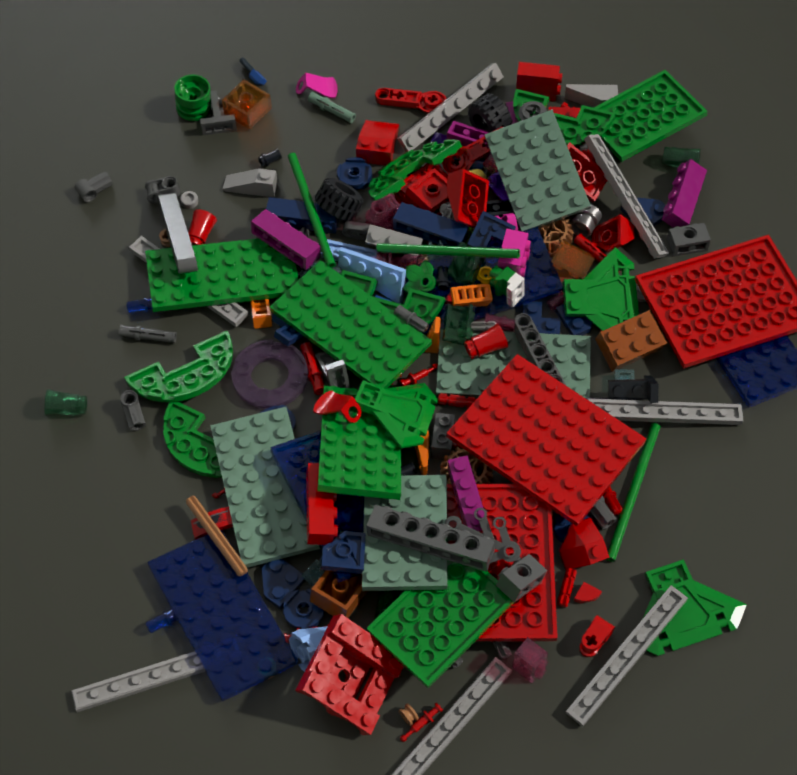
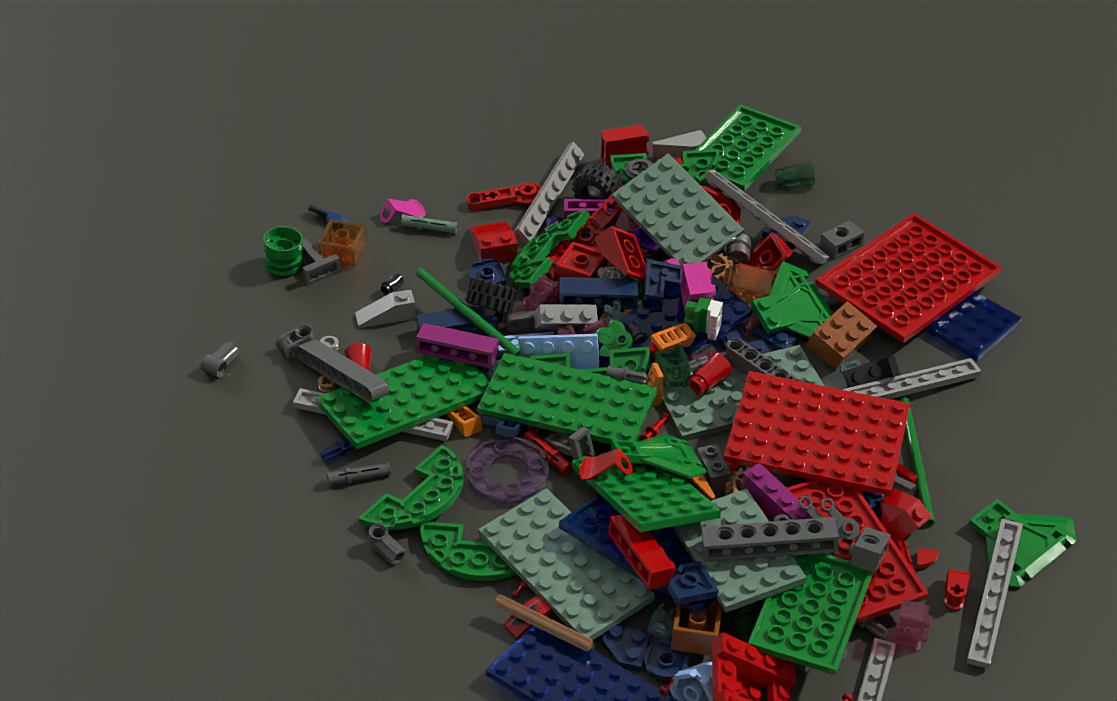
camera: 25 degrees left, 15 degrees down
(64, 403) = (309, 560): clear green plant -> none
(448, 250) = (633, 302): green piece -> none
(455, 400) = (706, 437): red axle -> none
(465, 268) = (653, 313): clear green bracket -> none
(484, 270) = (675, 317): yellow plate -> none
(684, 194) = (816, 203): magenta brick -> none

